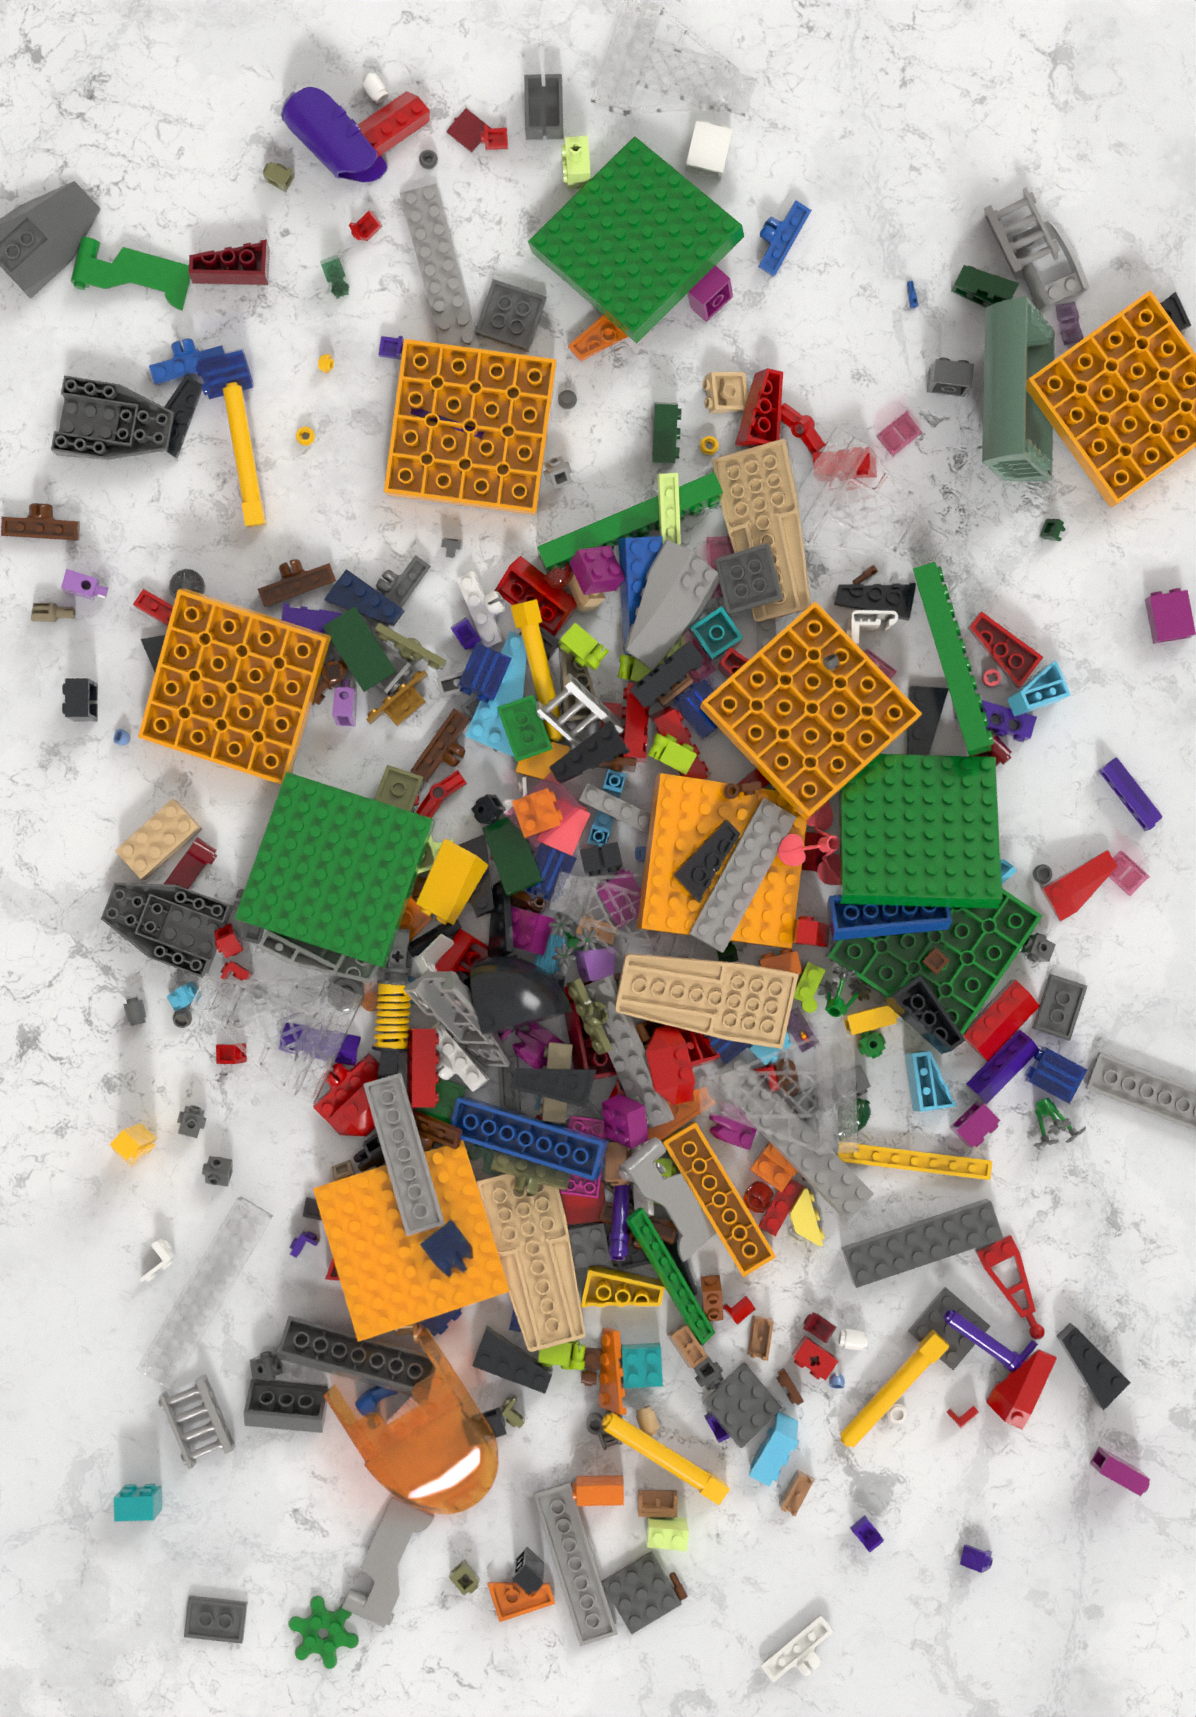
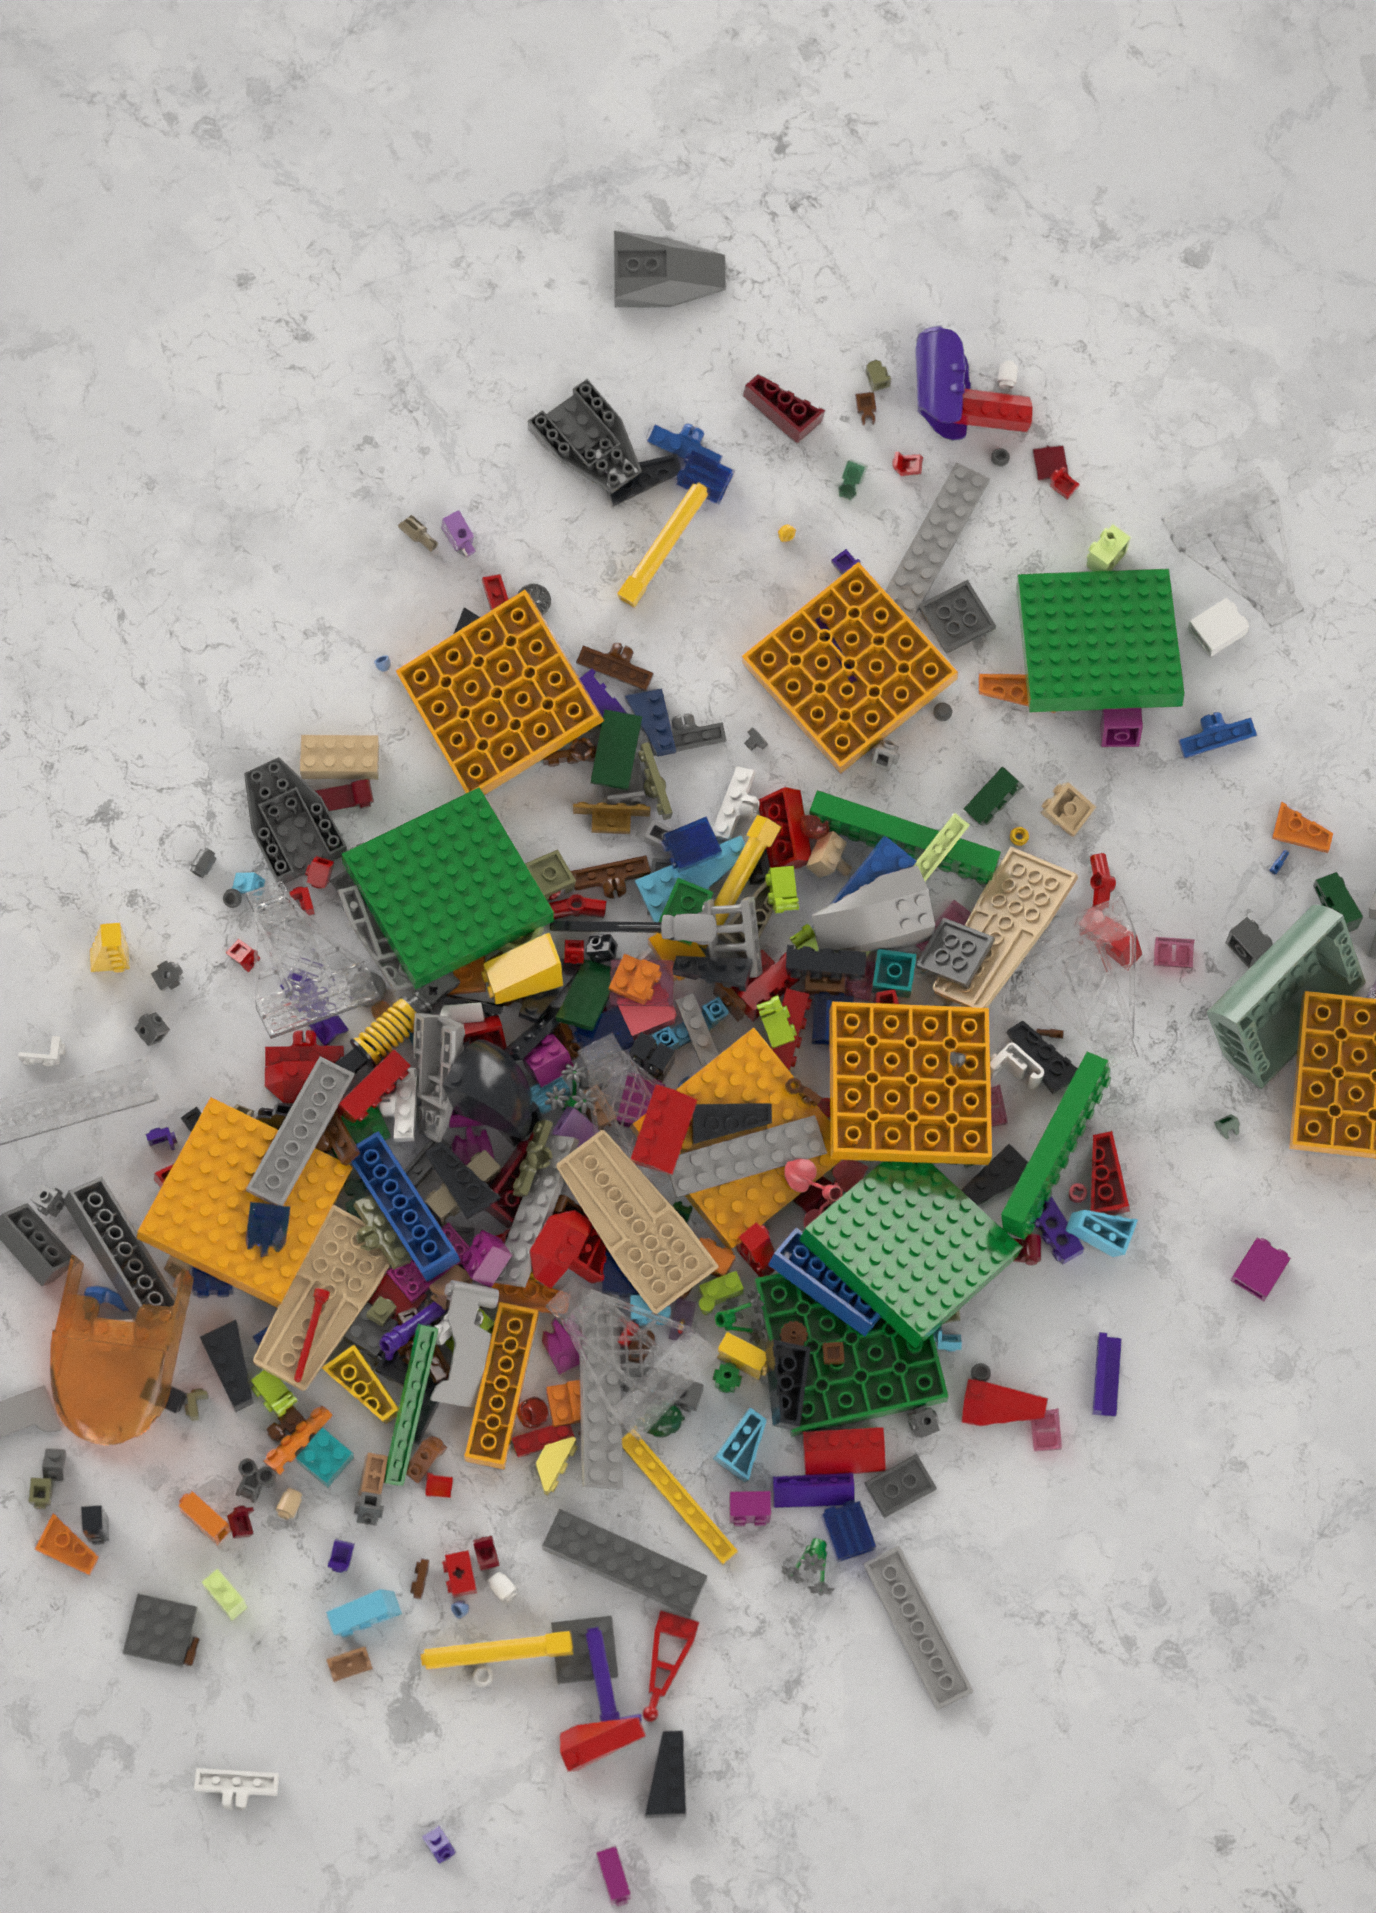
camera: 45 degrees right, 15 degrees down
(40, 525) = (469, 466): reddish brown plate -> none
(77, 697) = (380, 604): black piece -> none
(133, 268) = (707, 347): green door -> none
(292, 207) = (866, 404): none -> reddish brown plate
(305, 430) = (725, 566): yellow plate -> none
(345, 704) = (567, 781): medium lavender torso -> none
(453, 1548) = (54, 1464): none -> dark grey bracket
(465, 634) = (706, 807): dark purple bracket -> none
(469, 829) = (574, 951): none -> red bracket
(534, 1261) = (320, 1298): none -> red piece
(543, 107) = (1120, 492): dark grey piece -> none
(544, 743) = (688, 927): none -> piece
(575, 1563) = (131, 1561): light grey plate -> none
(585, 1227) = (381, 1311): none -> olive bracket
(597, 570) = (845, 844): magenta brick -> none
(626, 1467) = (240, 1522): none -> dark red bracket
(657, 1503) = (237, 1572): medium nougat hinge -> none
(671, 914) = (663, 1129): none -> red slope
(706, 1482) = (276, 1538): yellow brick -> none
(742, 1405) = (371, 1556): dark grey plate -> none
(760, 1337) = (434, 1521): medium nougat hinge -> none
(762, 411) = (1082, 844): red wedge -> none
(867, 1533) = (373, 1743): dark purple bracket -> none
(893, 972) = (794, 1333): none -> reddish brown piece
(905, 257) = (1298, 830): none -> orange wing
(965, 1418) = (533, 1727): red tile -> none

